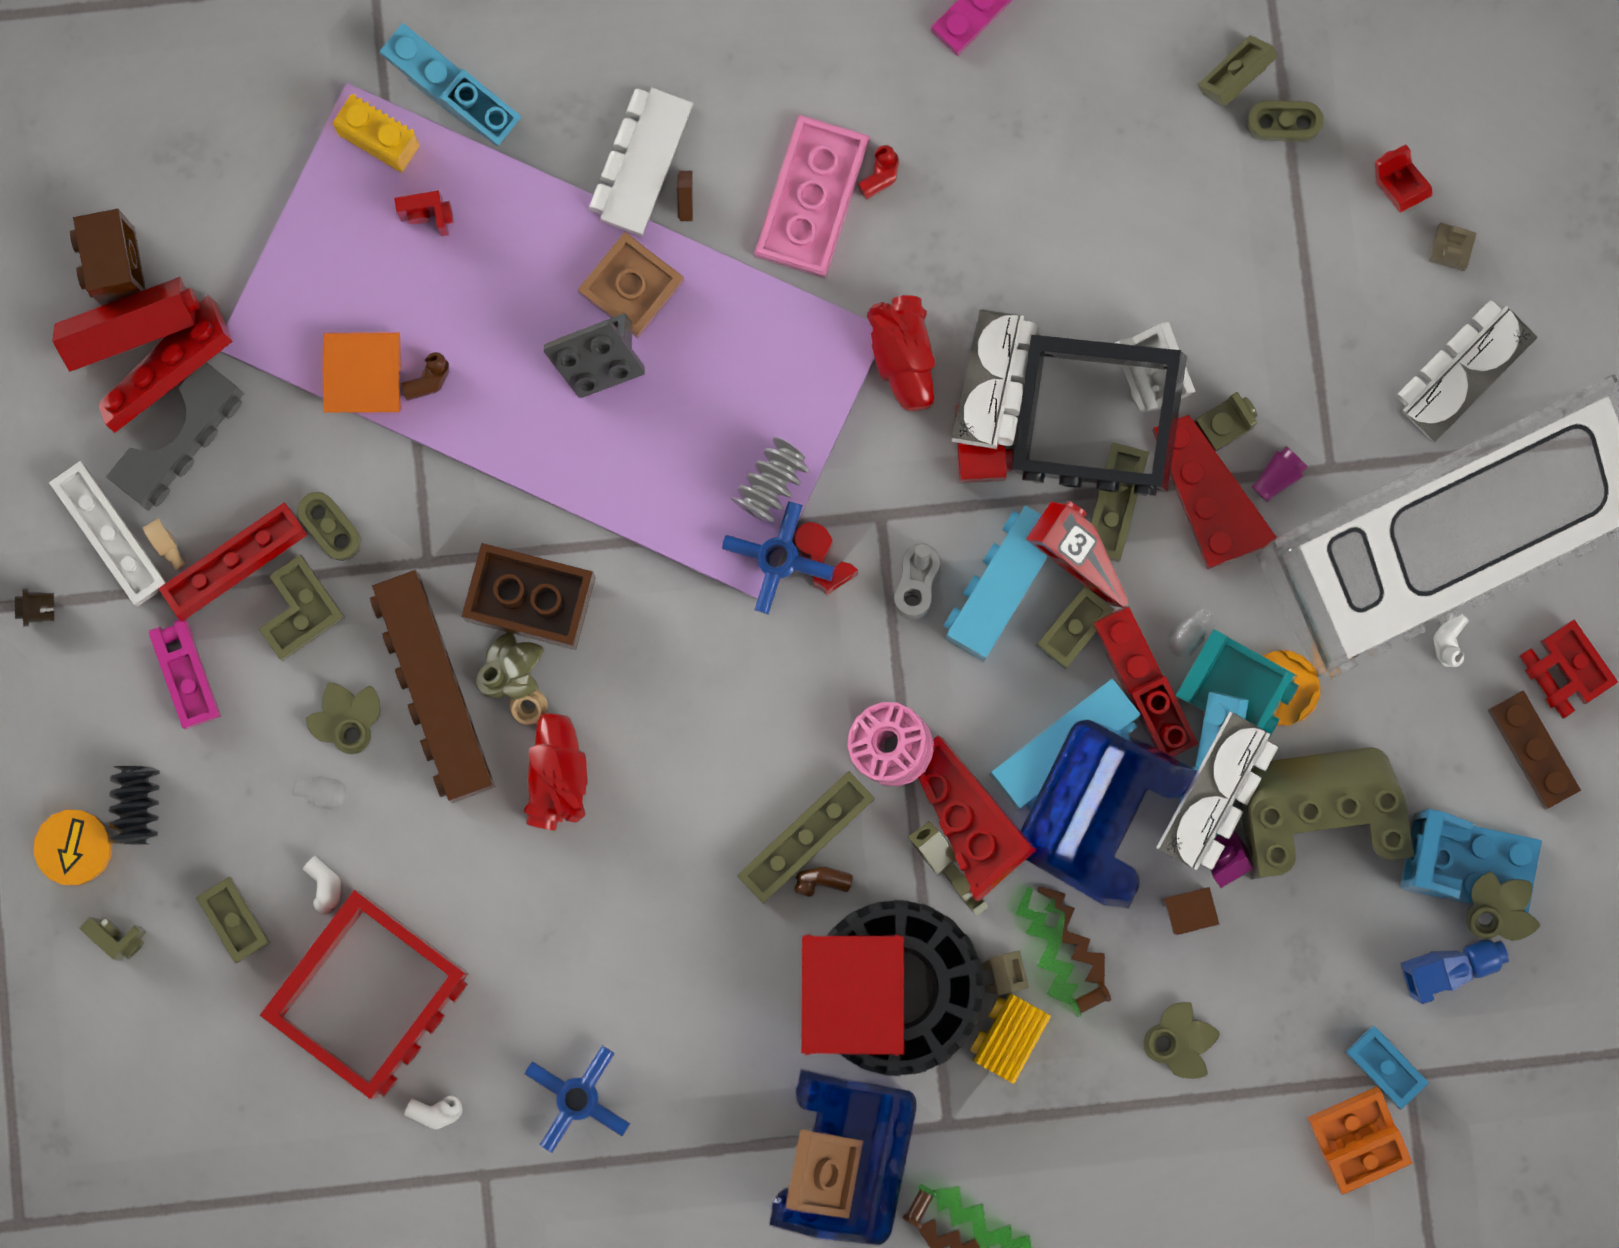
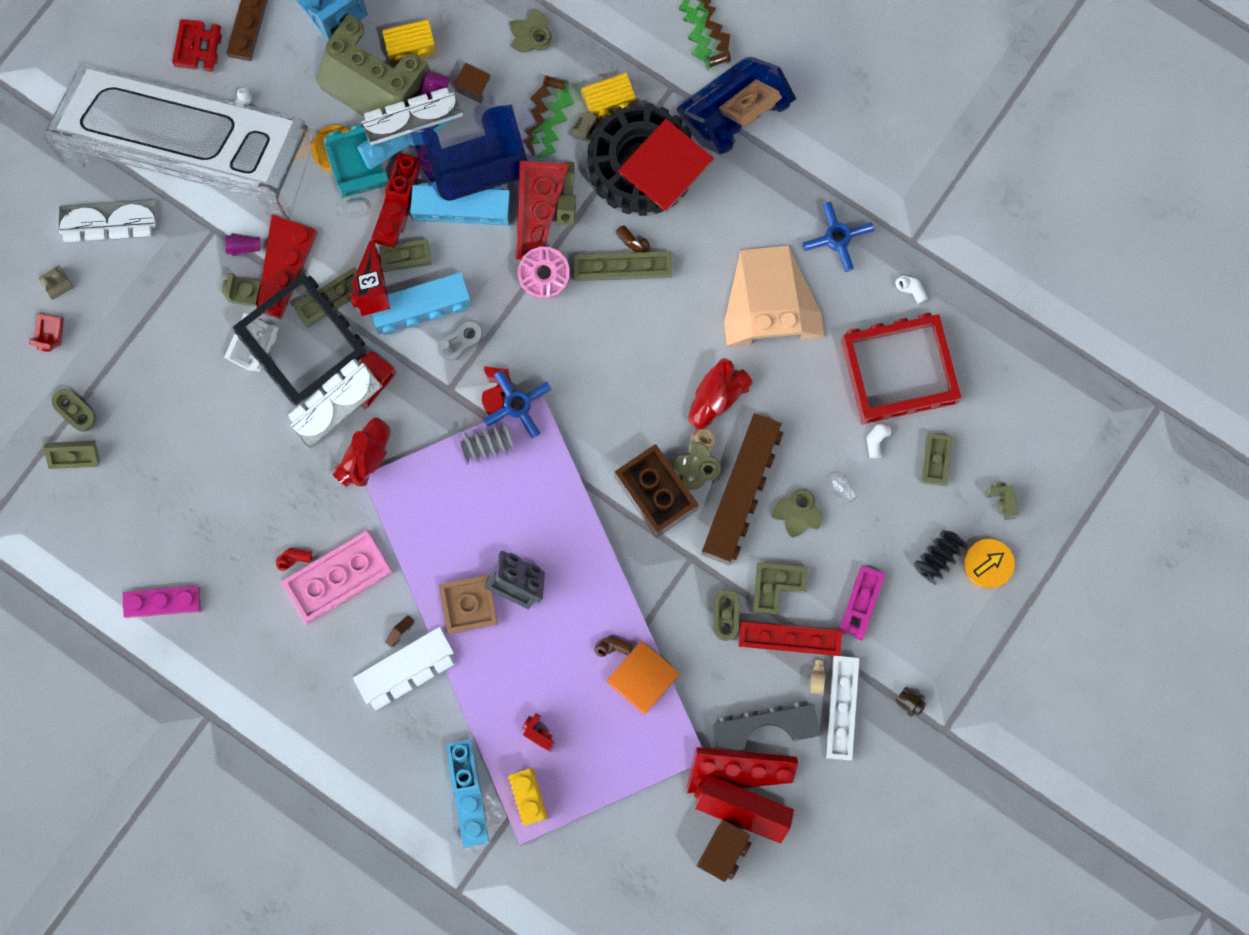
camera: 135 degrees left, 5 degrees down
(594, 950) = (770, 299): none -> light nougat wedge
(1315, 896) = (408, 39): none -> yellow brick

